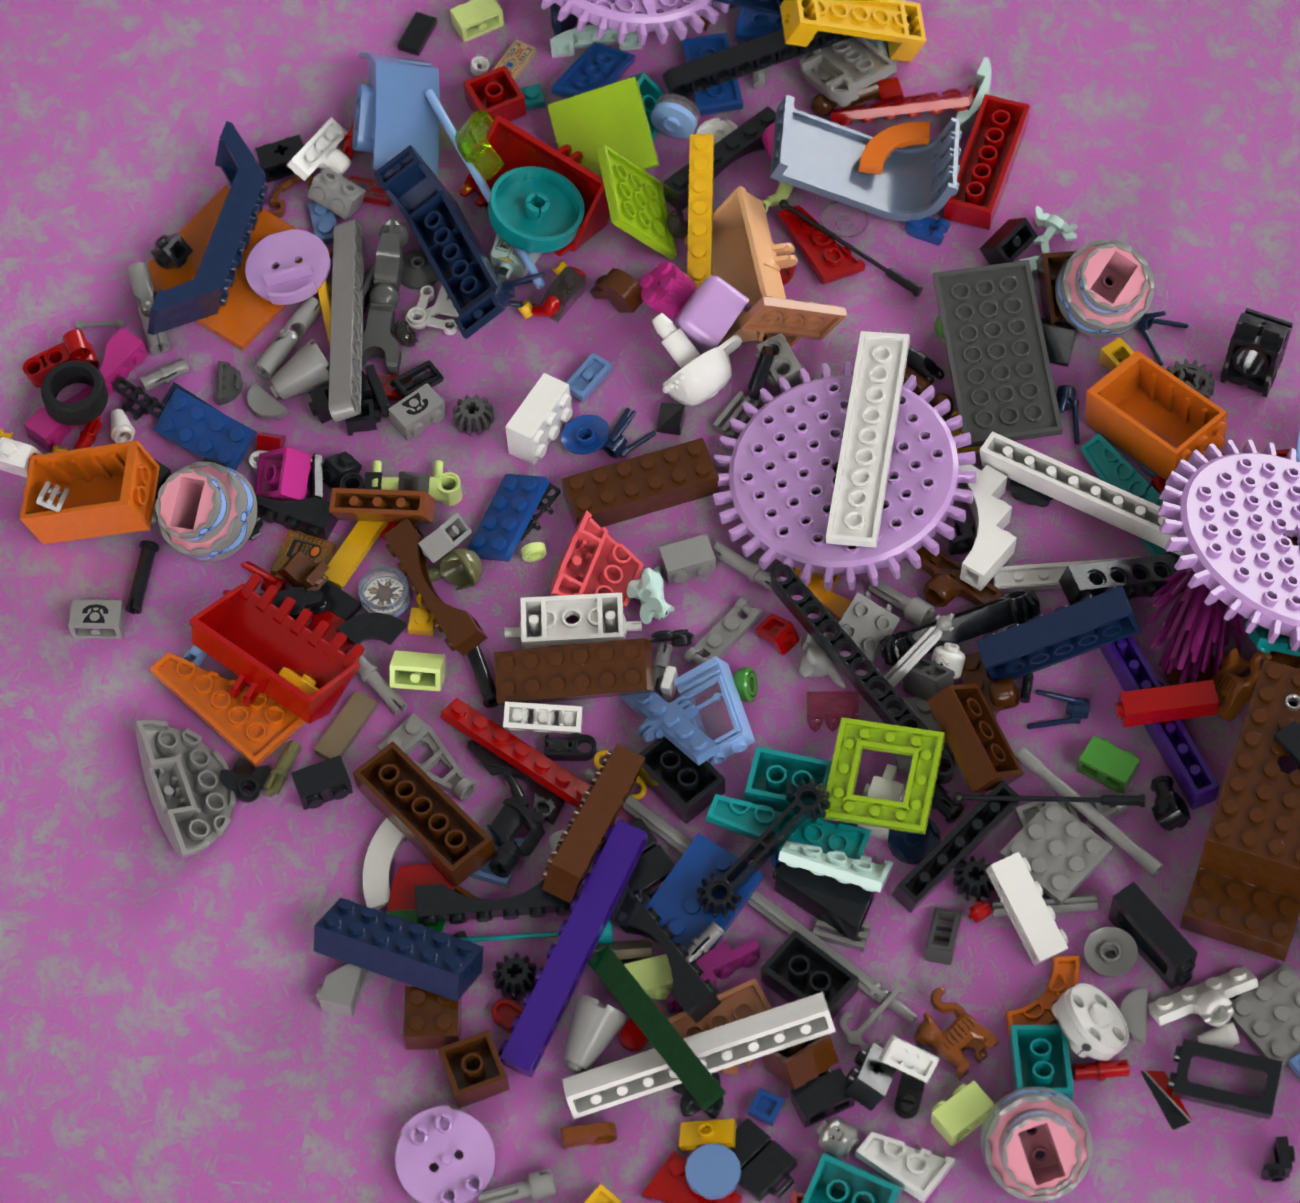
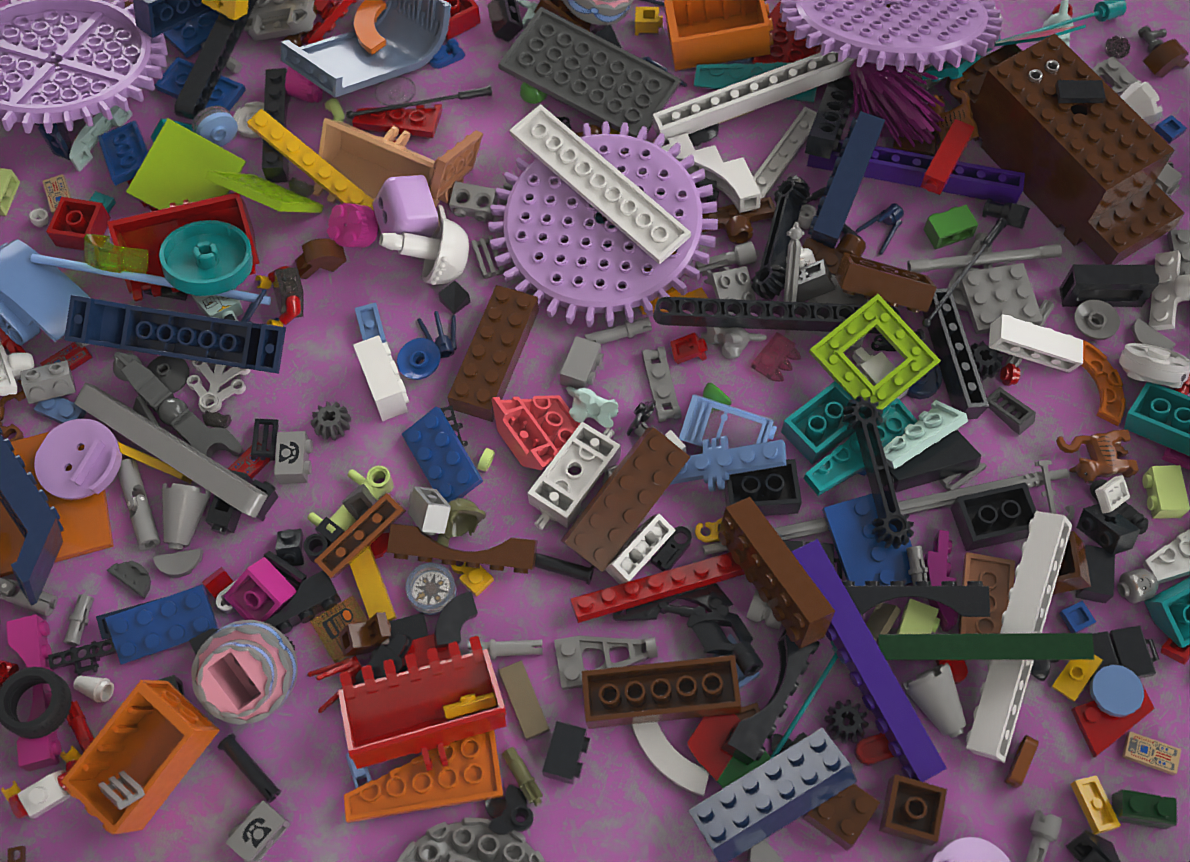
camera: 55 degrees left, 5 degrees up
(377, 390) = (254, 471): black tile -> none
(417, 670) = (522, 611): yellowish green brick -> none
(760, 372) = (475, 215): black tile -> none

